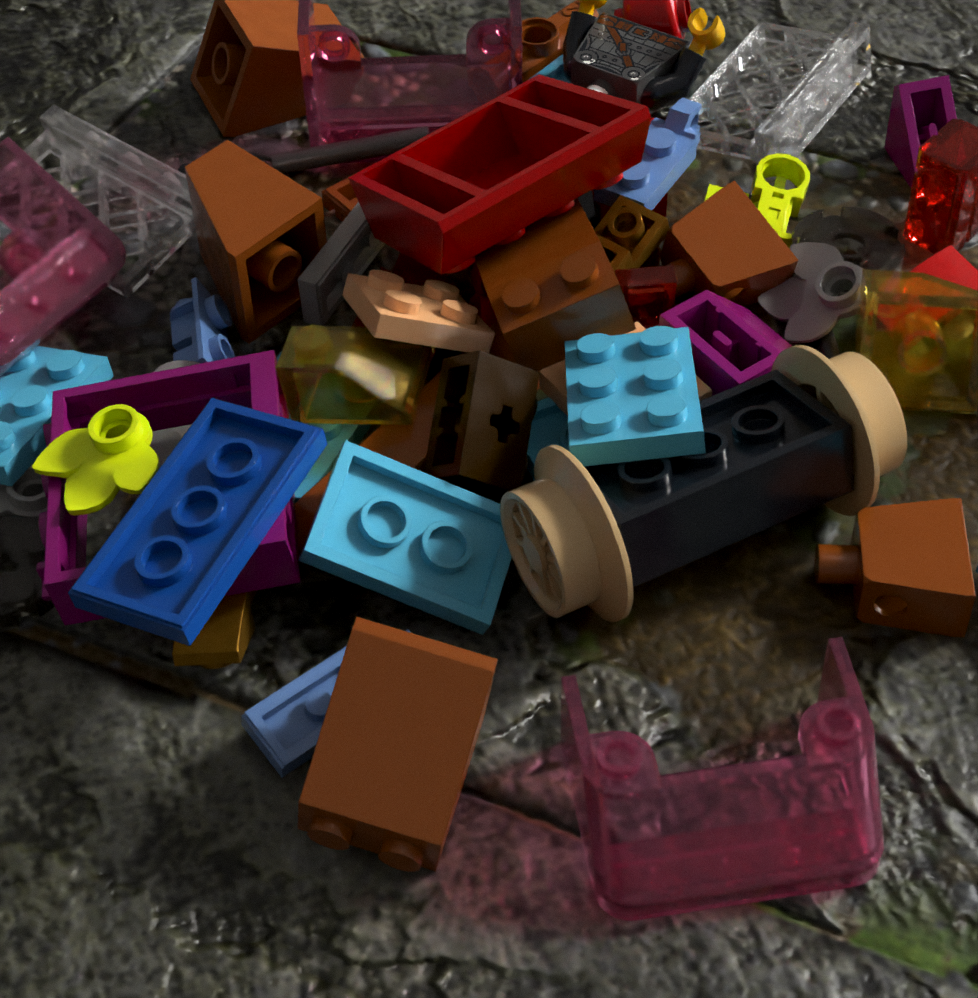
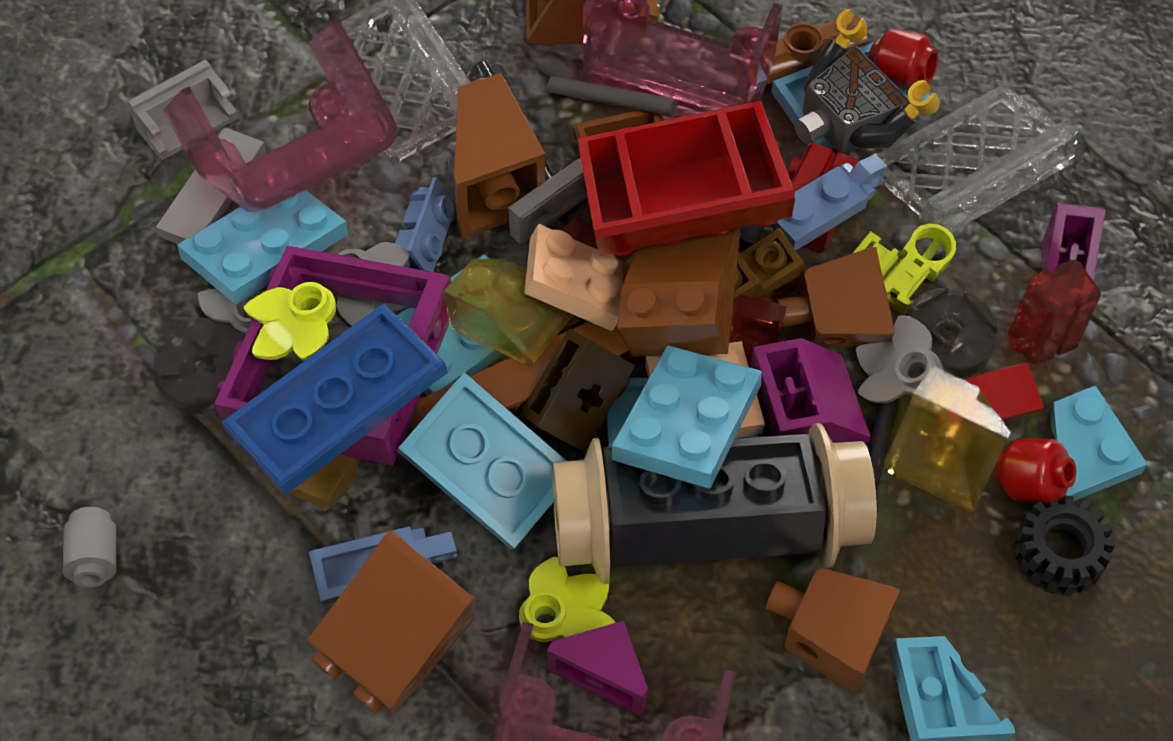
camera: 20 degrees right, 10 degrees up
(593, 655) = (571, 601): none -> neon yellow plate
(673, 707) = (601, 664): none -> magenta slope

